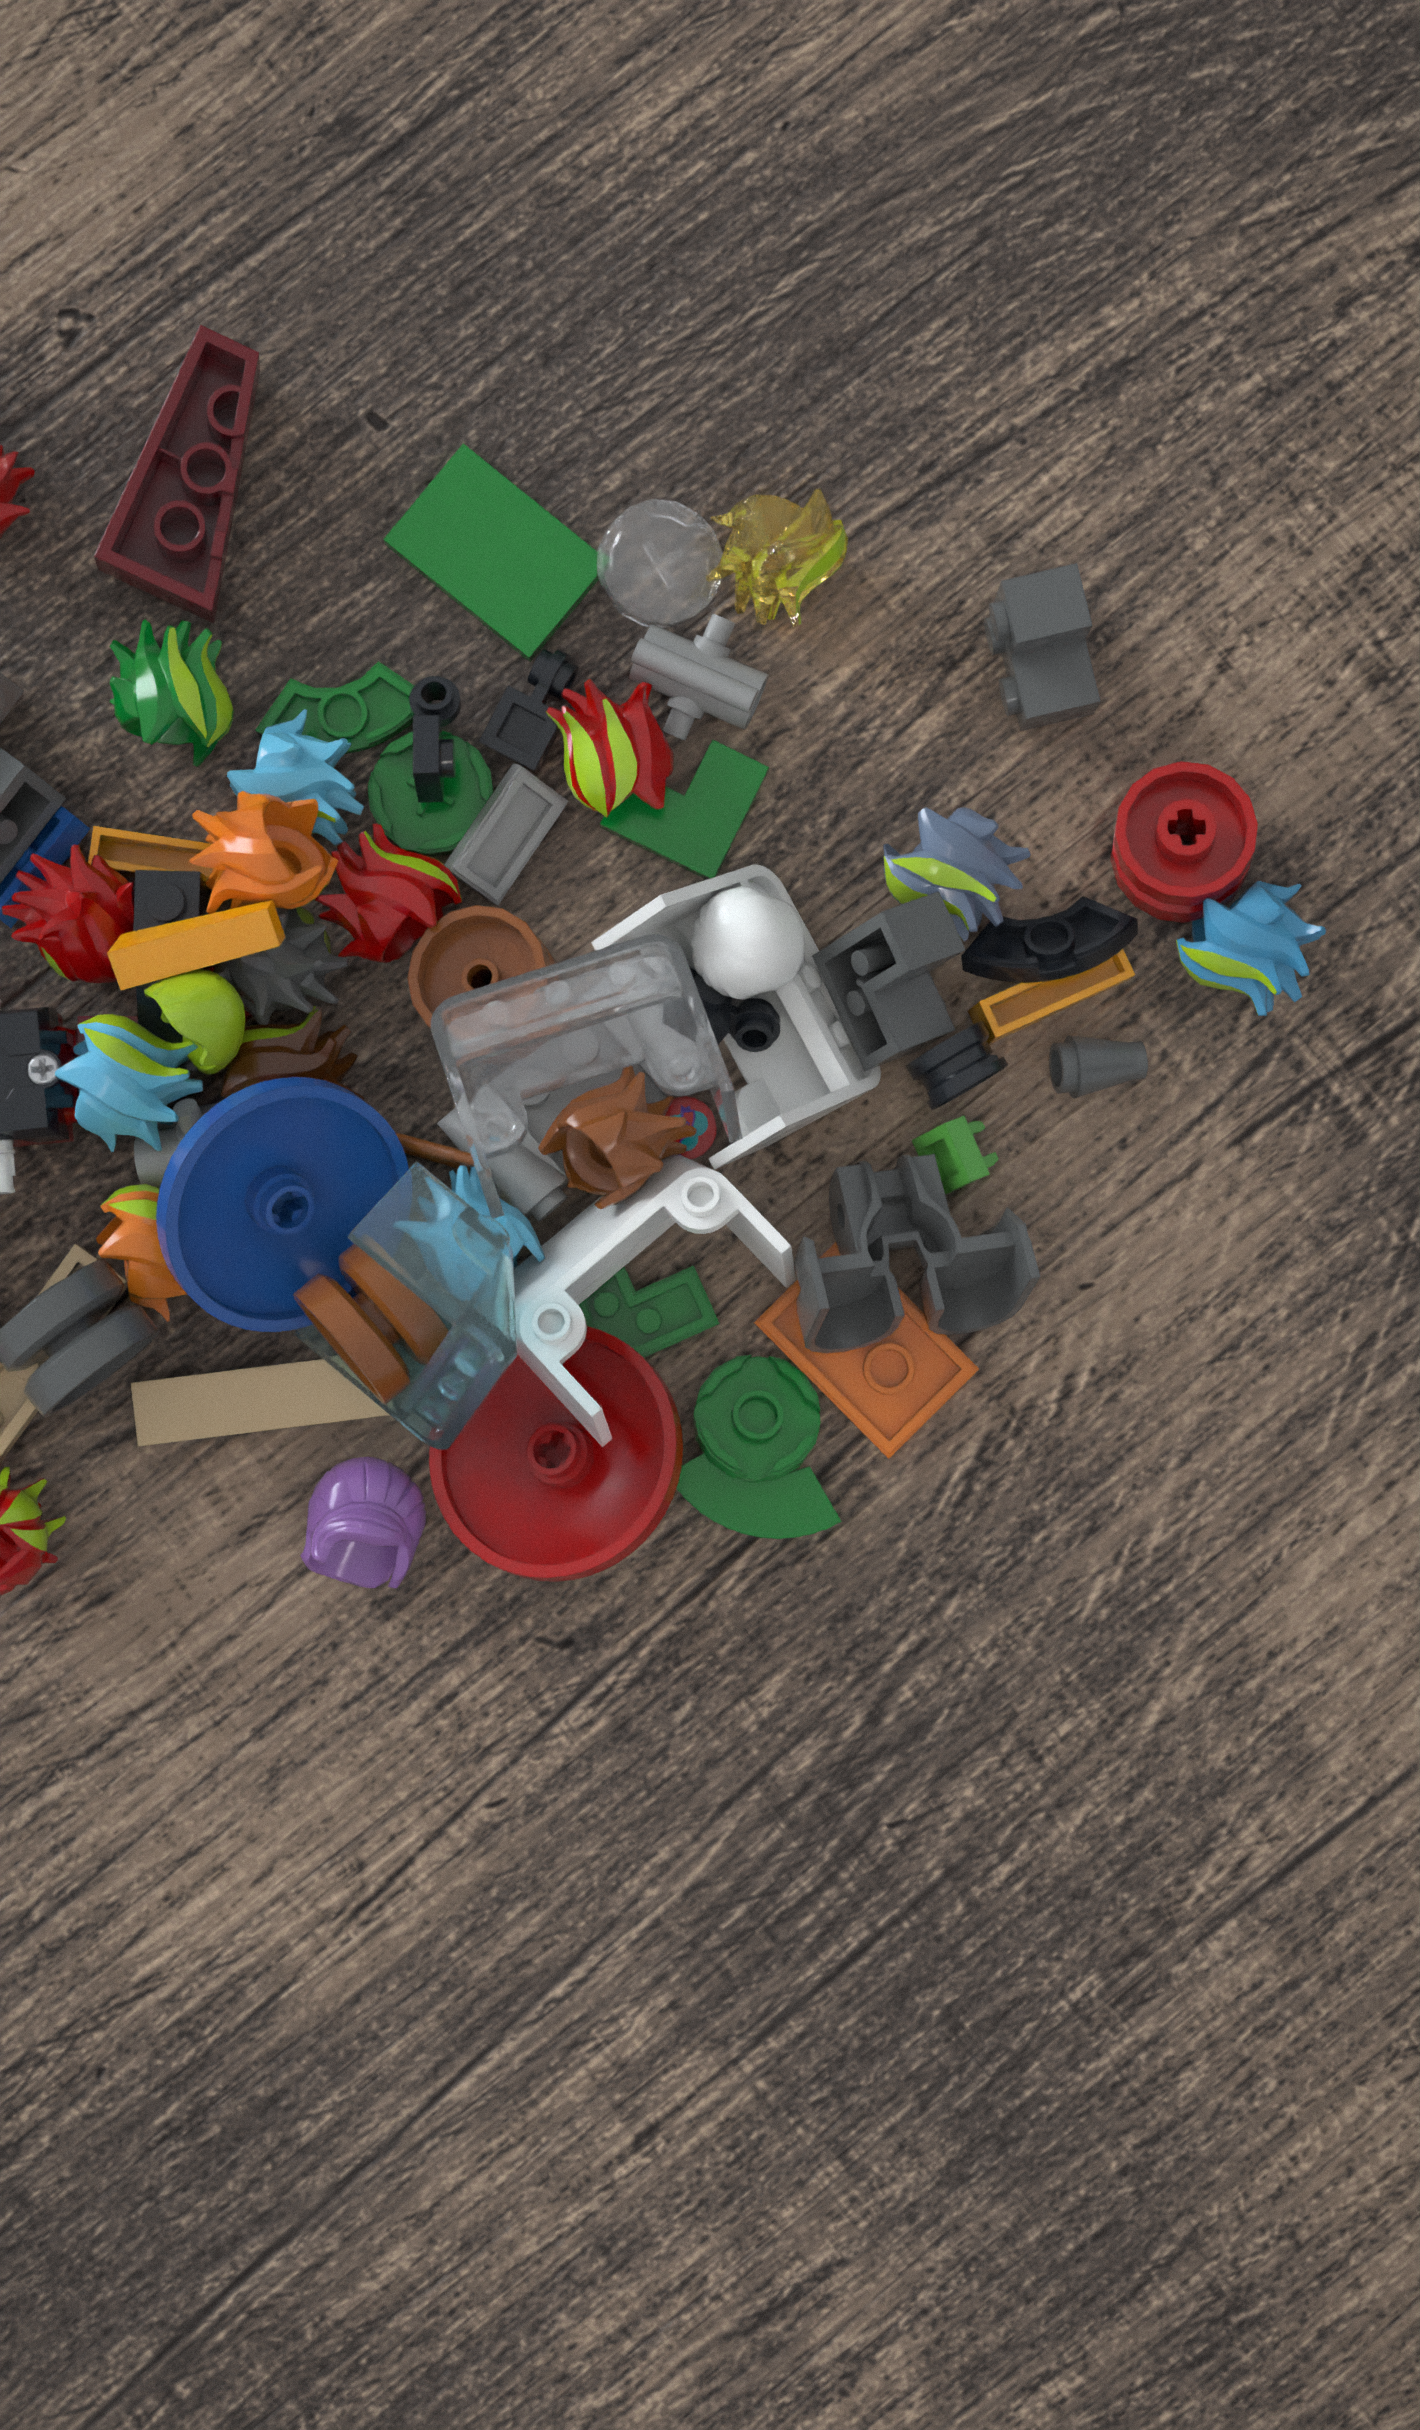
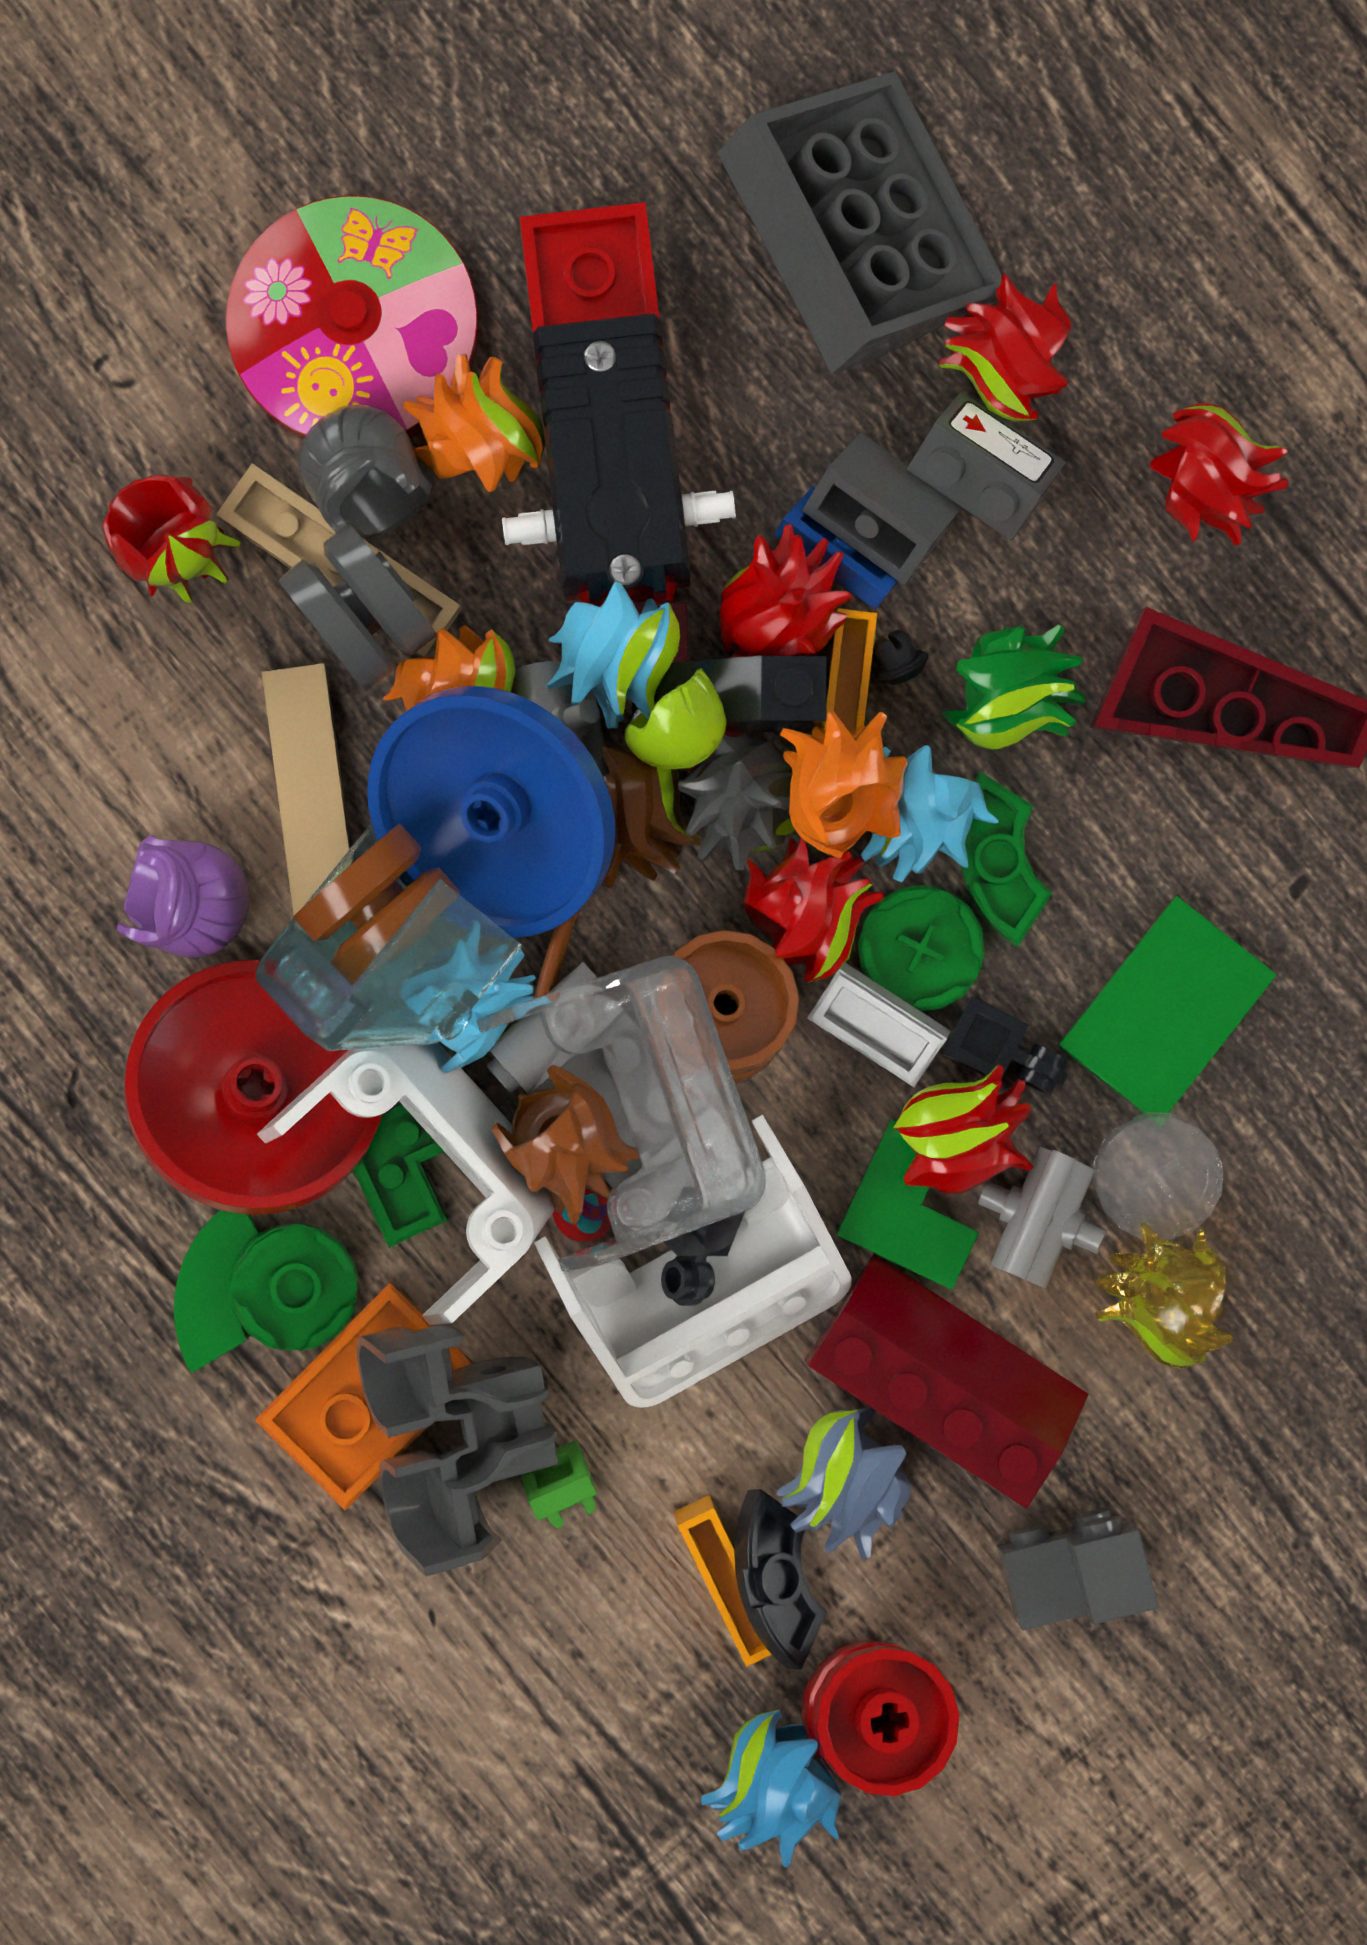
camera: 90 degrees right, 0 degrees up
(140, 807) = (898, 658): none -> black piece
(194, 943) = (749, 717): light orange piece -> none
(432, 754) = (955, 949): black plate -> none
(747, 942) = (766, 1272): white hair -> none
(858, 772) = (948, 1380): none -> dark red slope
(884, 980) = (728, 1413): dark grey brick -> none
(956, 1065) = (648, 1486): black wheel -> none
(1094, 1064) = (654, 1623): dark grey cone -> none

